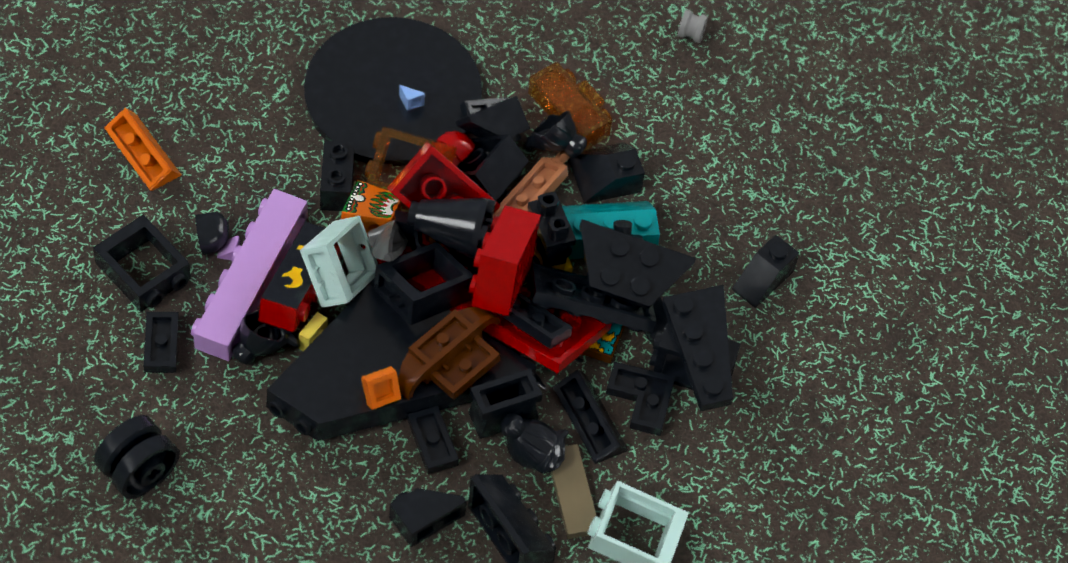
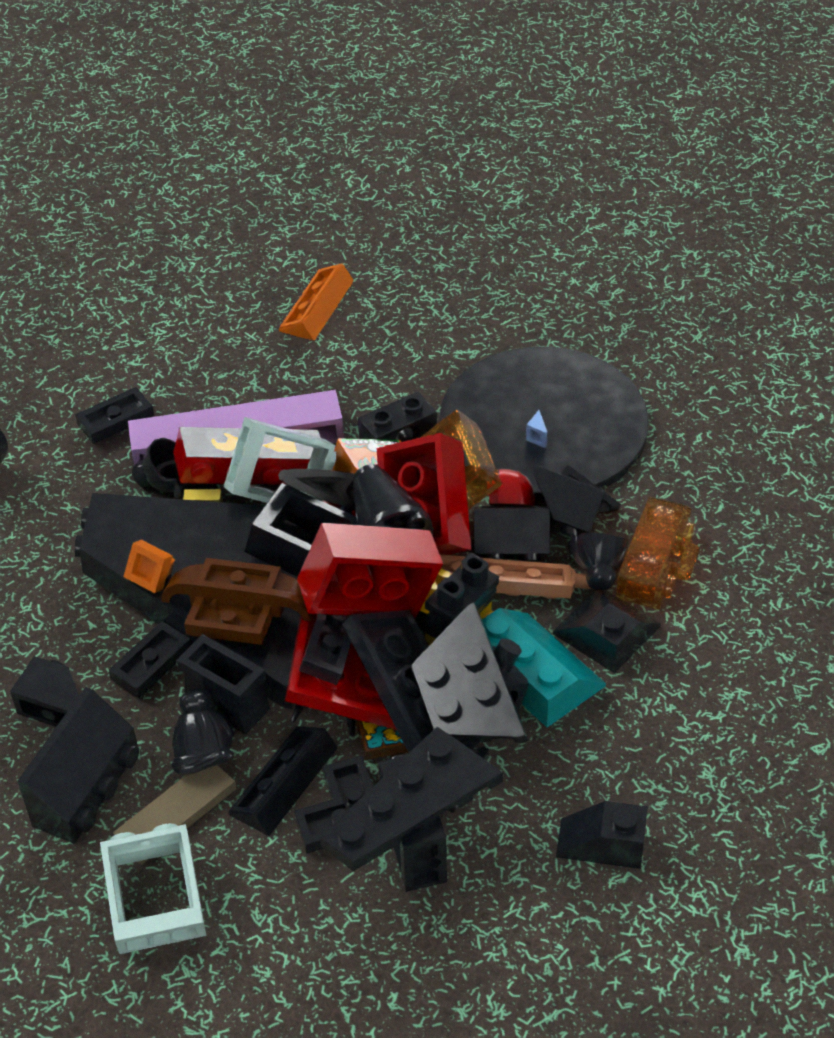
camera: 65 degrees right, 10 degrees down
(126, 241) = (192, 336): black window -> none
(212, 231) = (257, 381): black piece -> none

